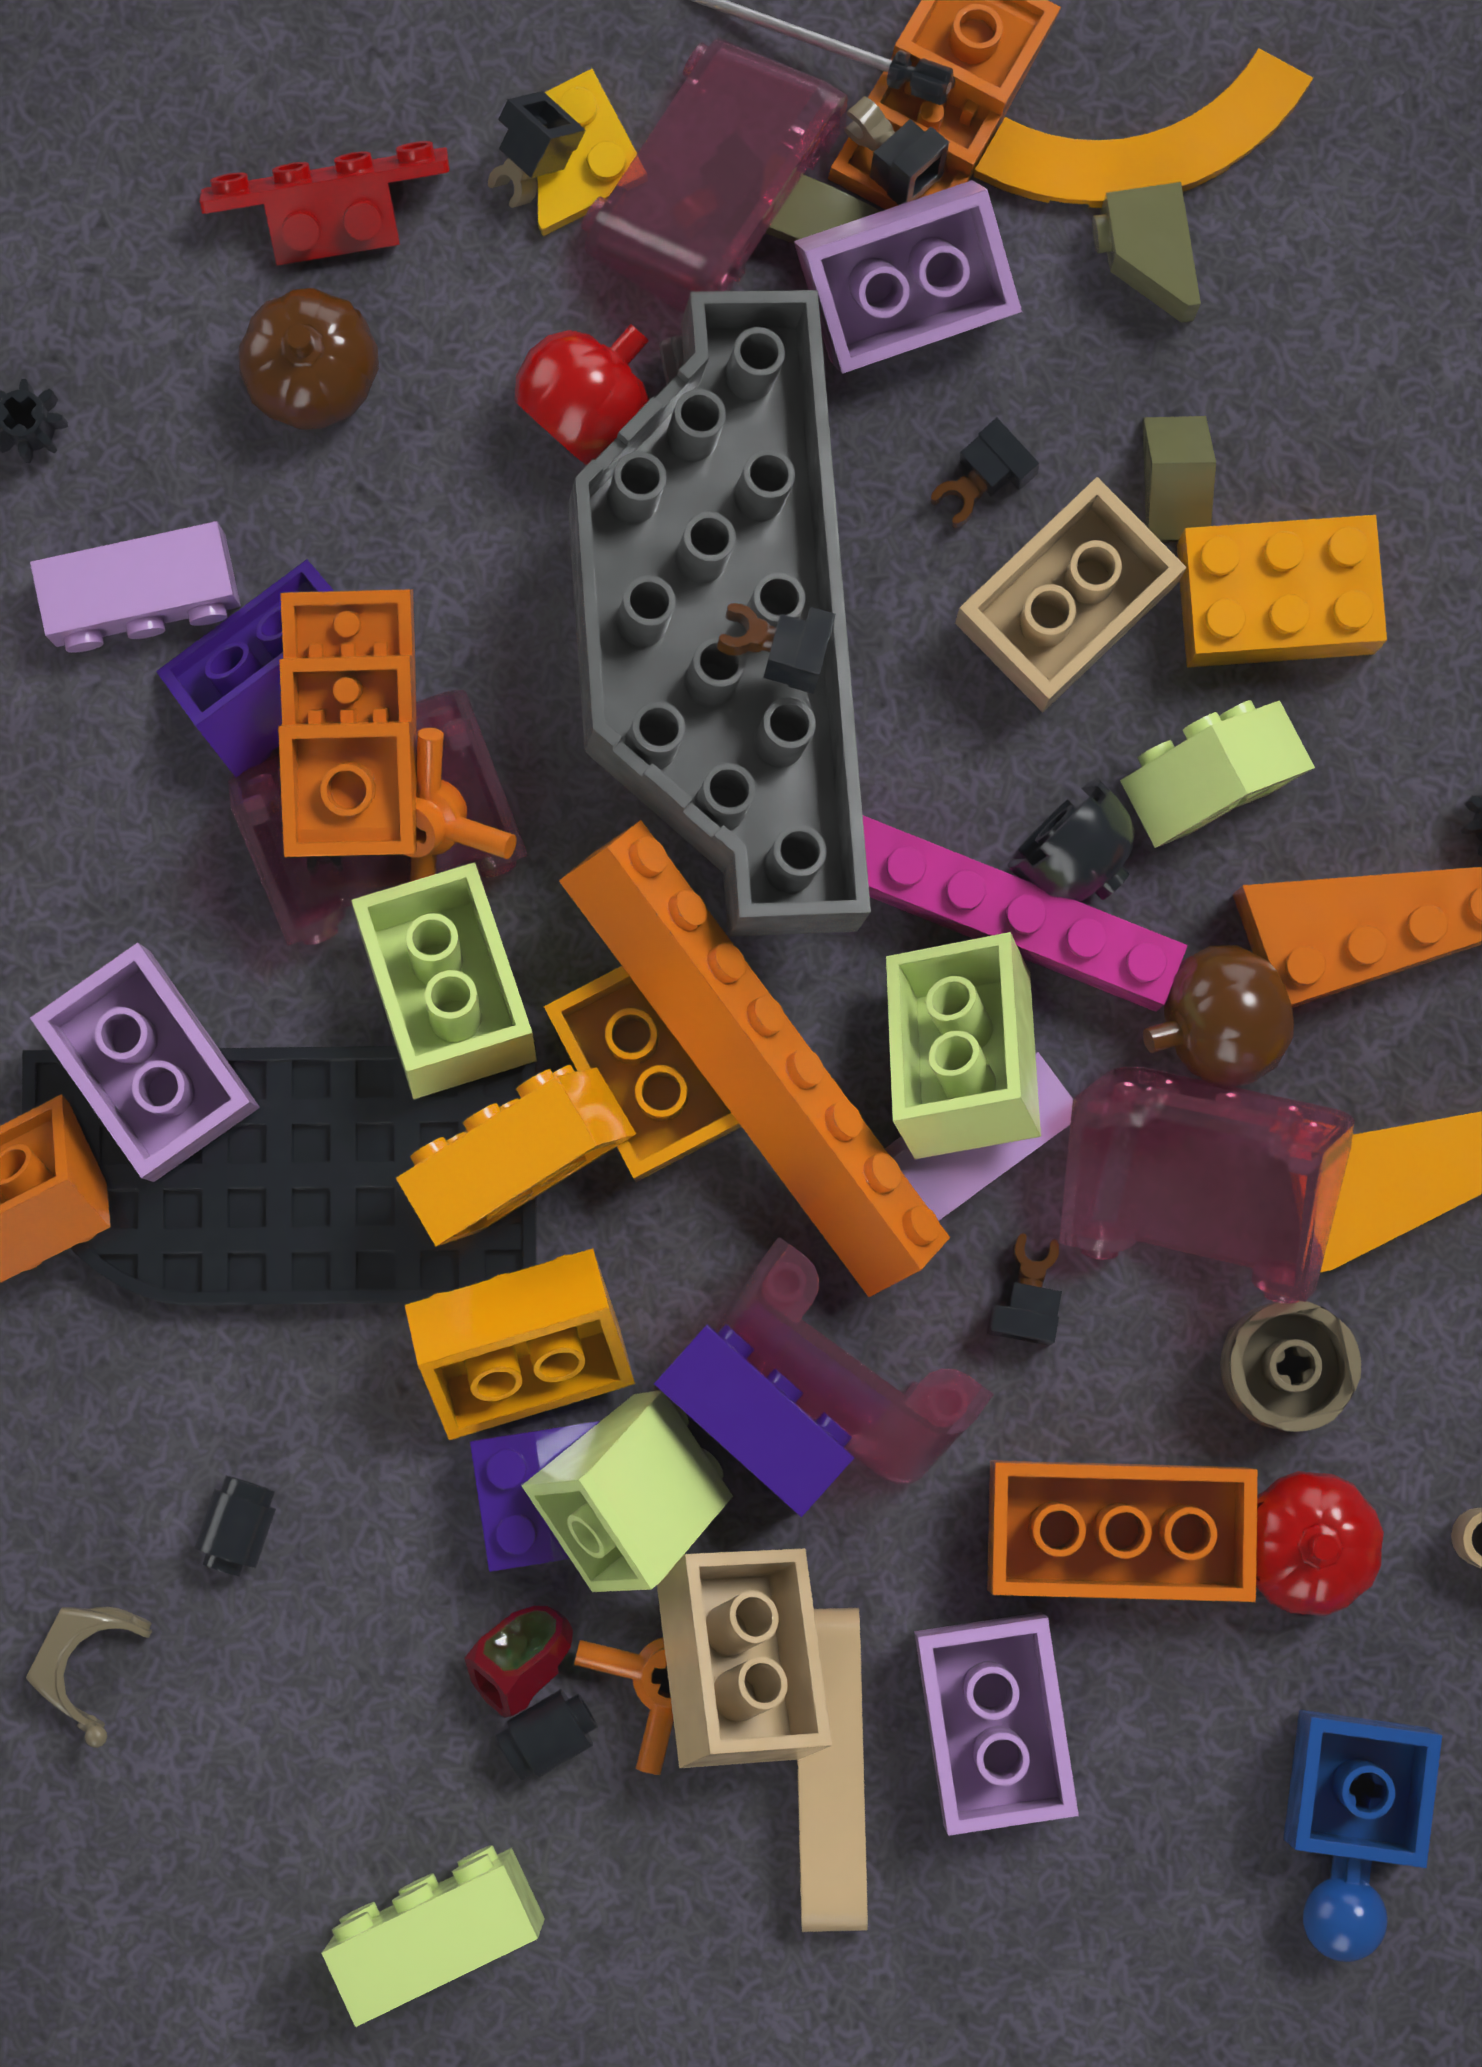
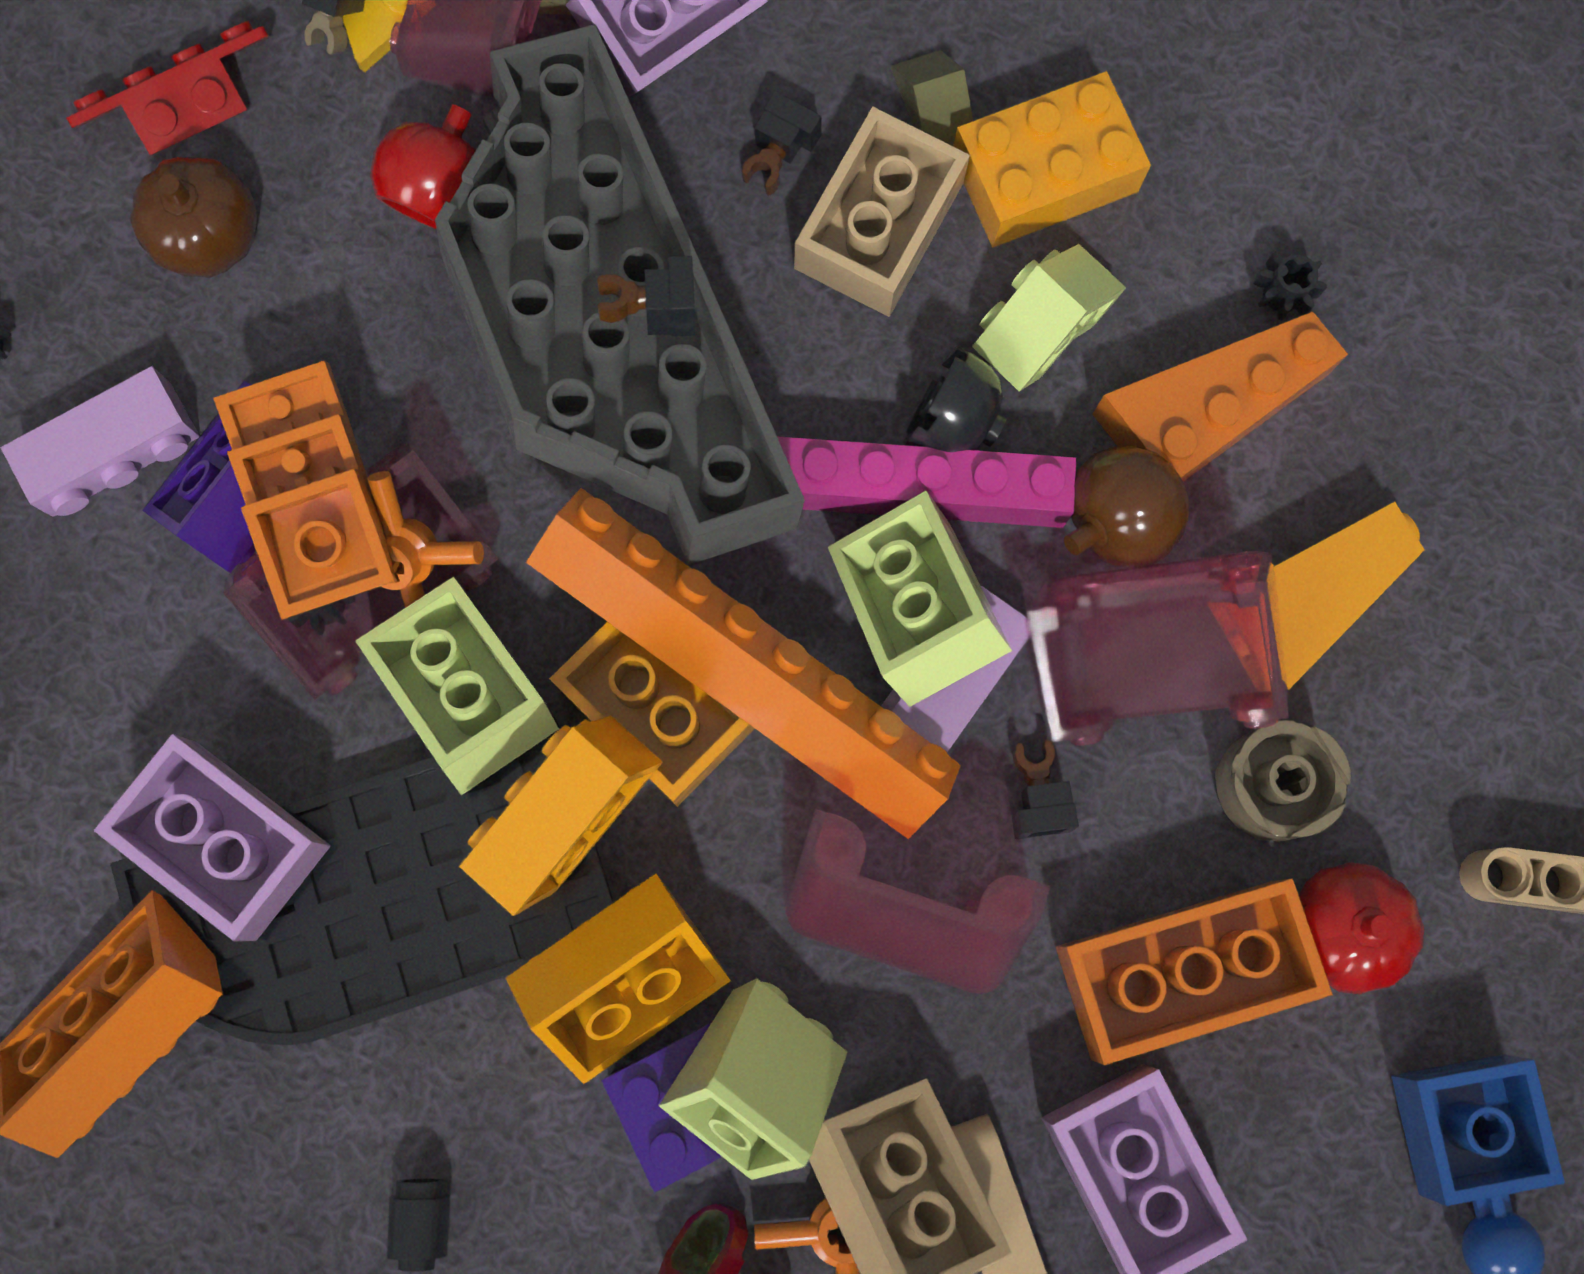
camera: 20 degrees left, 5 degrees down
(757, 1417) = (848, 976): dark purple slope -> none

